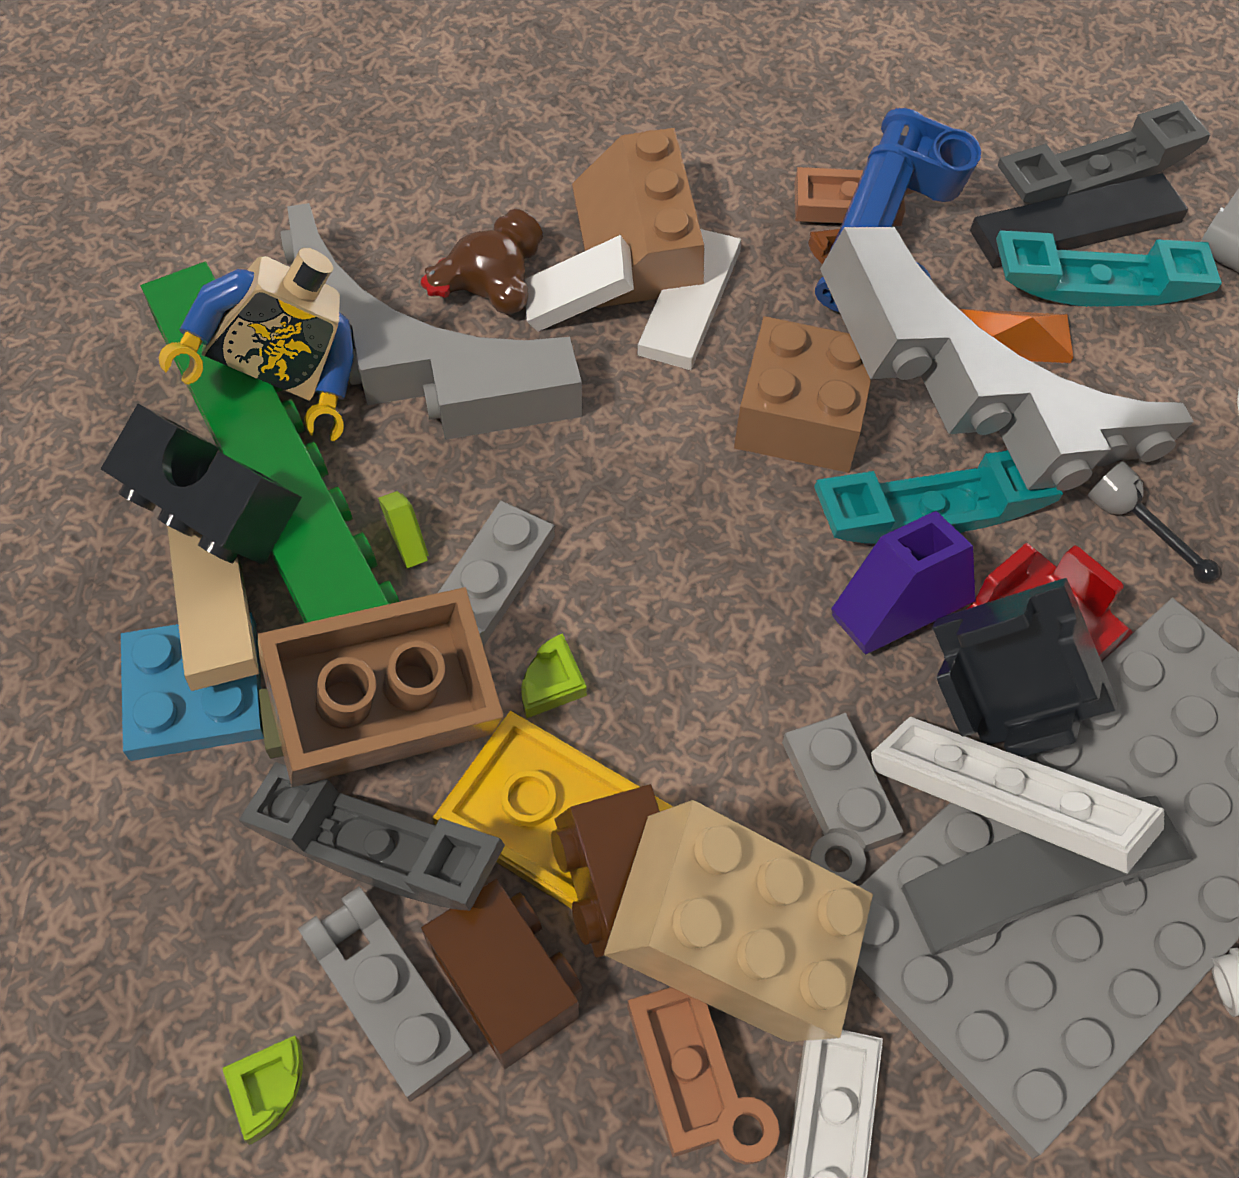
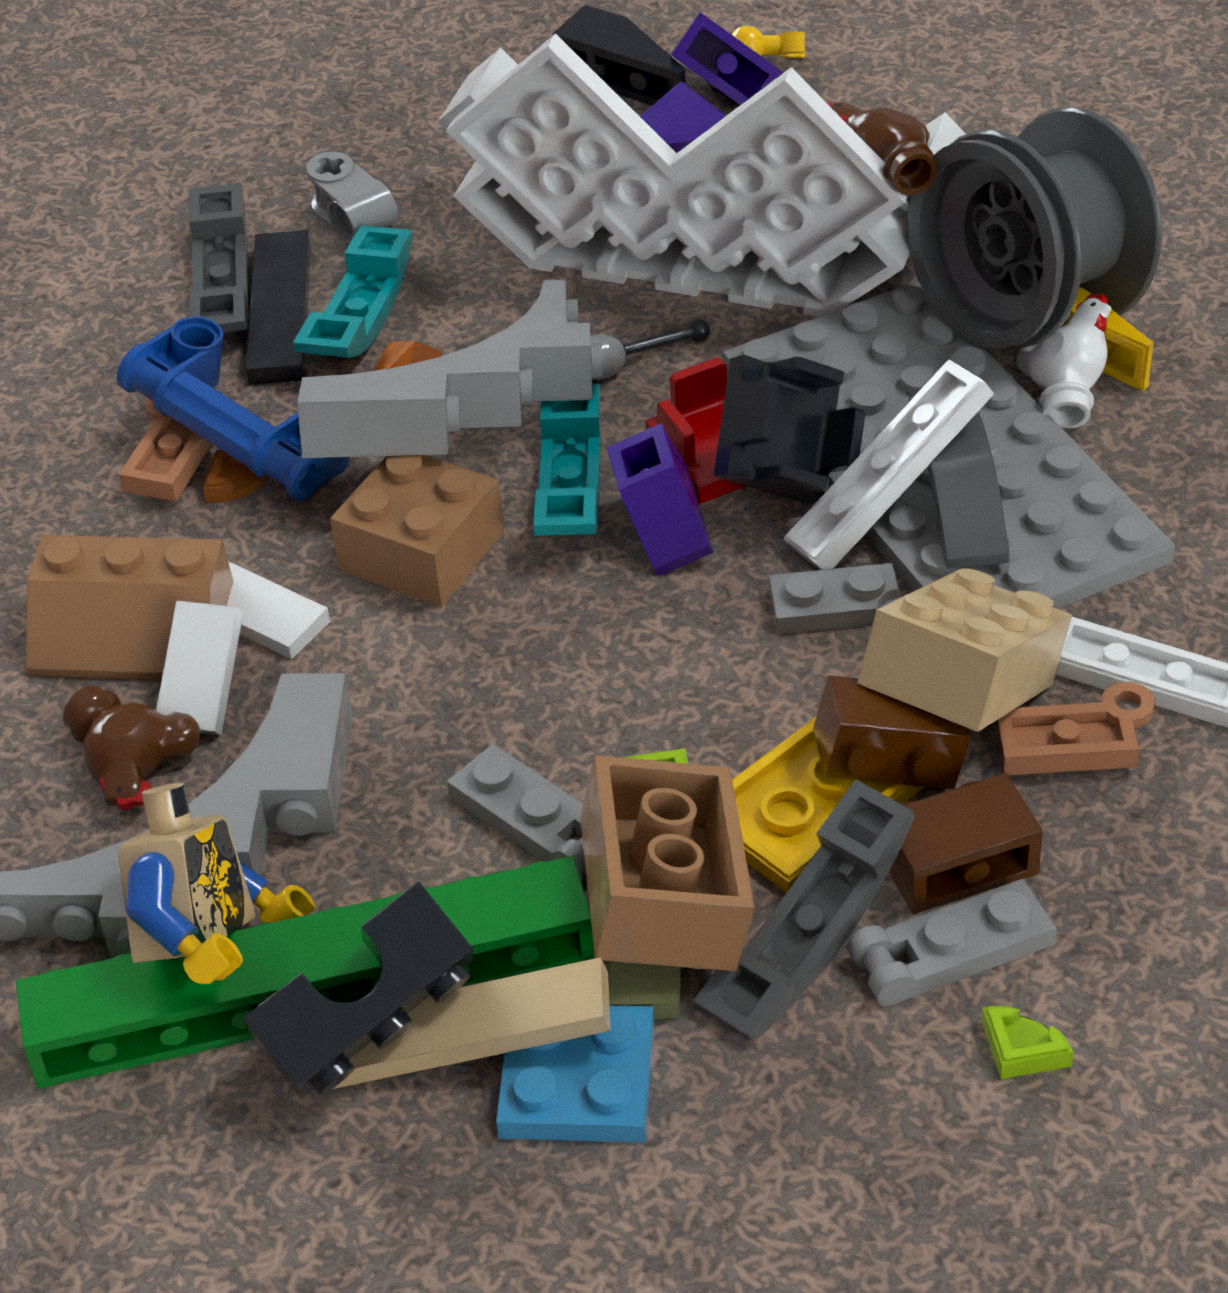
camera: 70 degrees left, 15 degrees down
(404, 528) = (445, 861): lime tile -> none

